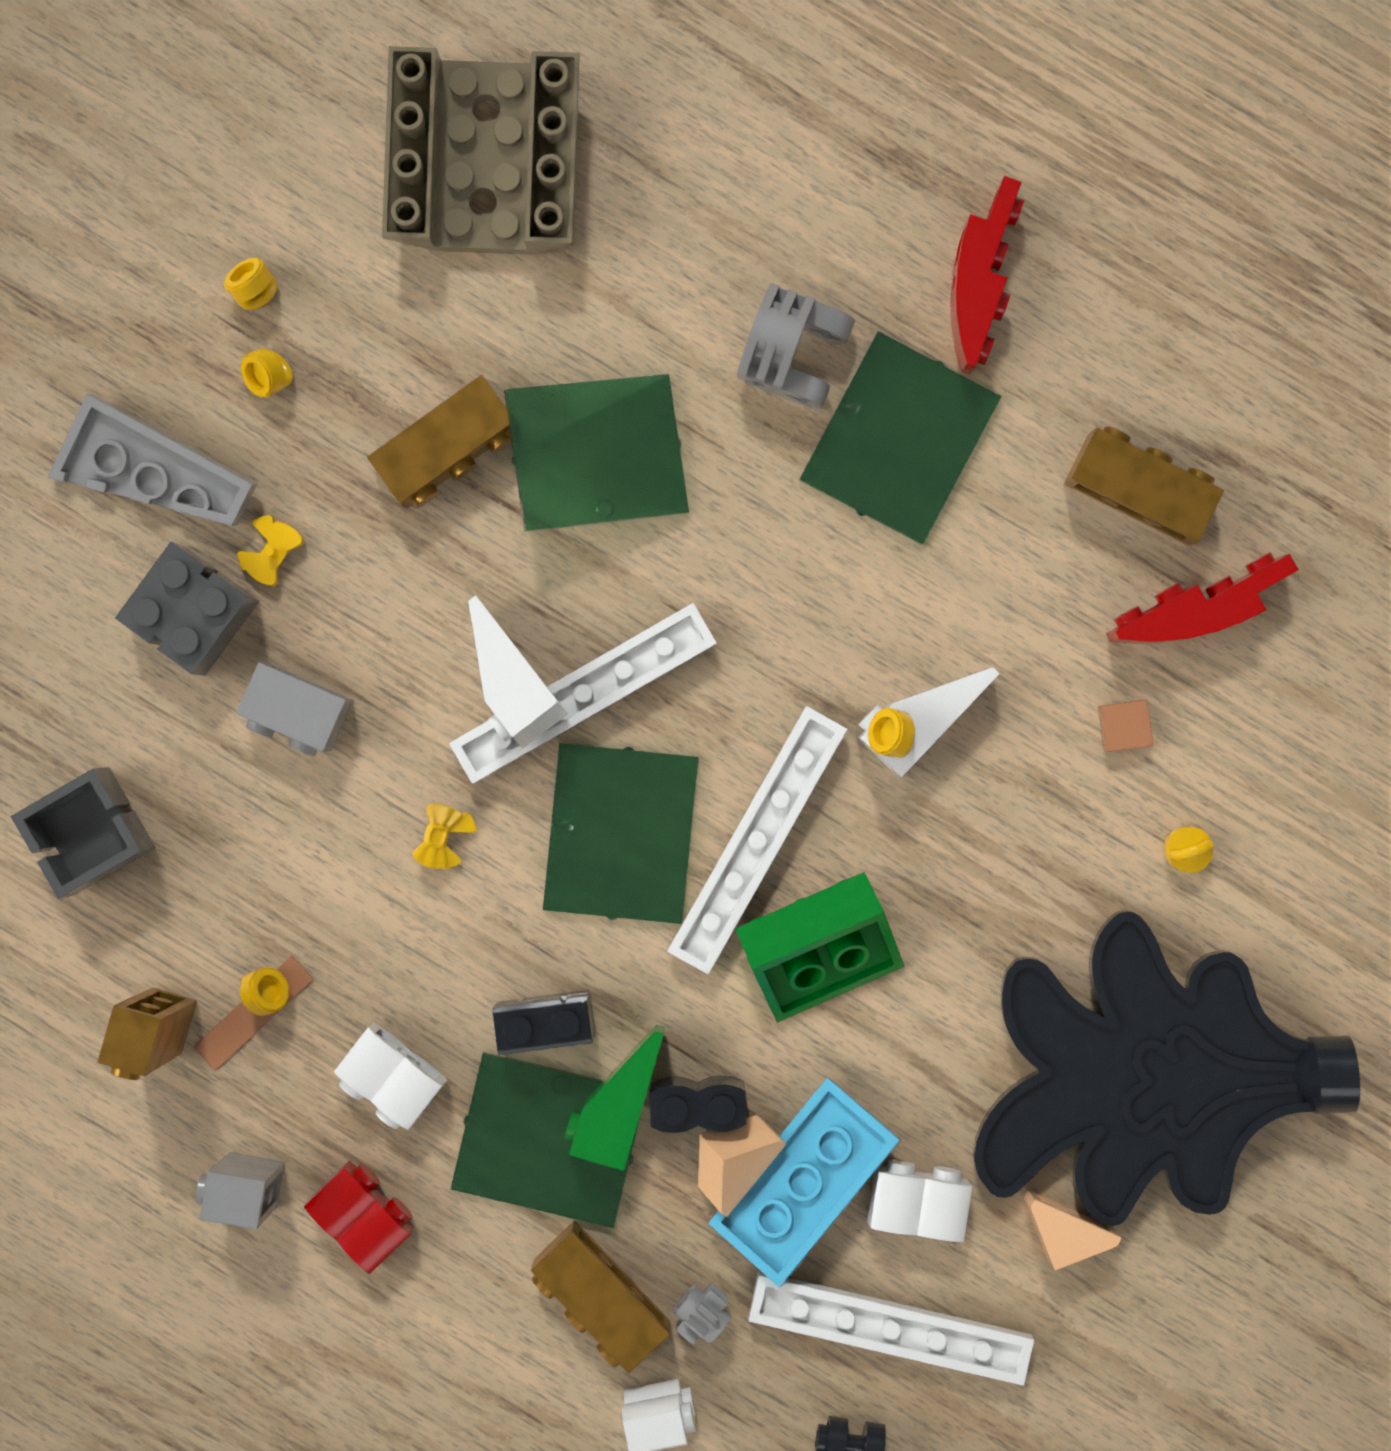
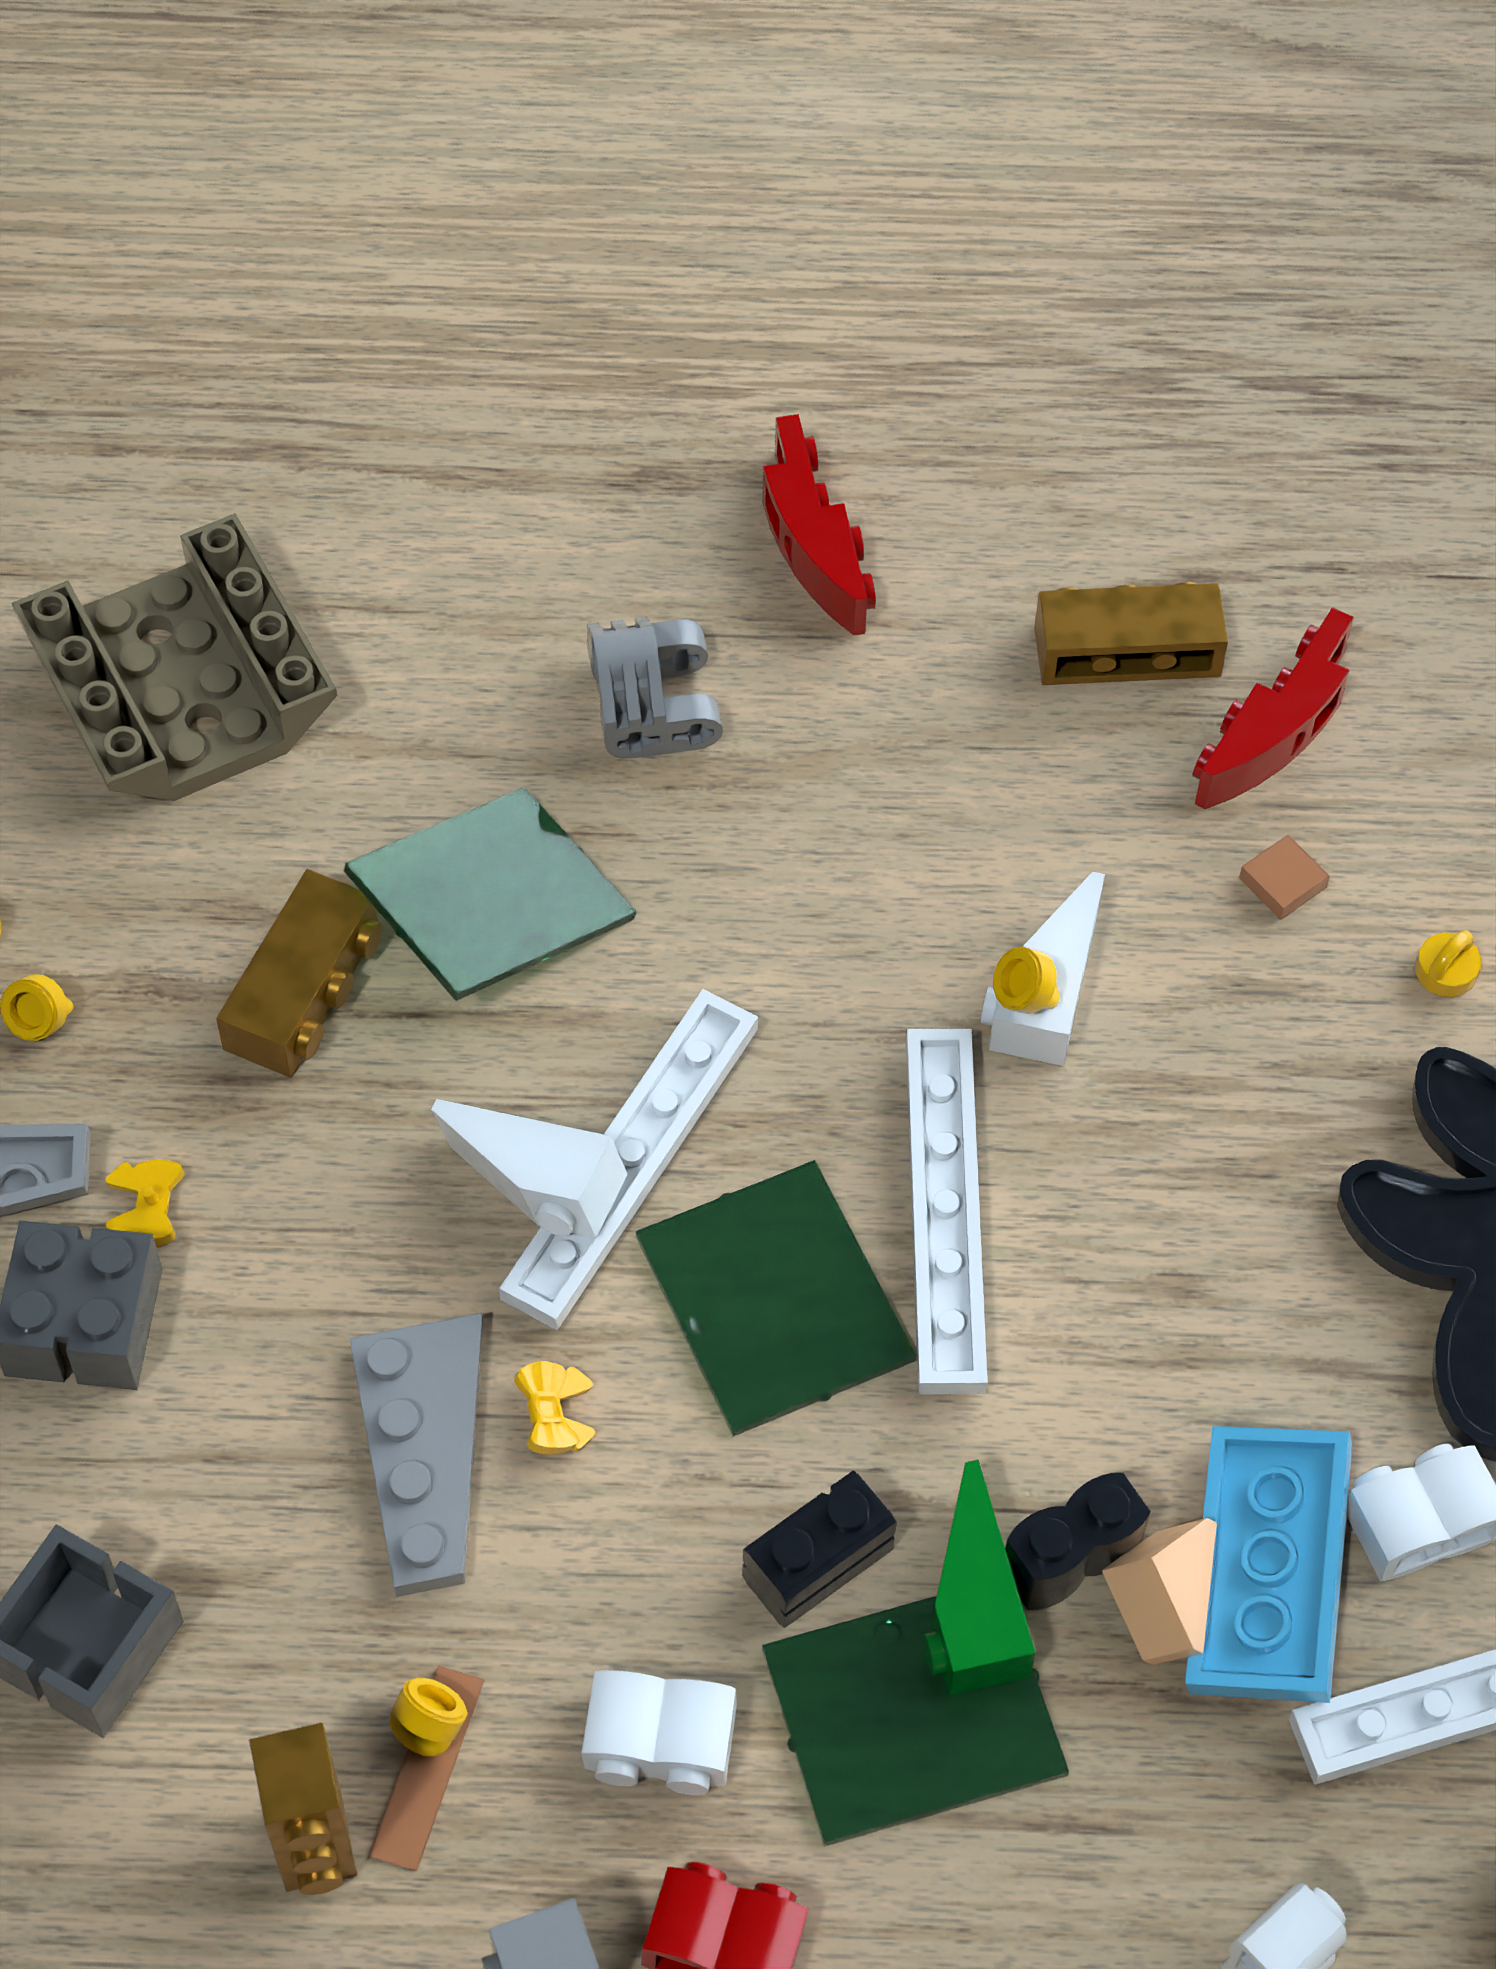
camera: 30 degrees left, 30 degrees down
(293, 708) = (277, 1351): light grey brick -> none
(358, 798) = (420, 1430): none -> light grey wing
(600, 1298) = (1110, 1859): pearl gold brick -> none
(701, 1313) = (1253, 1801): light grey gear -> none
(820, 947) = (1103, 1283): green slope -> none
(900, 438) = (829, 728): clear green piece -> none

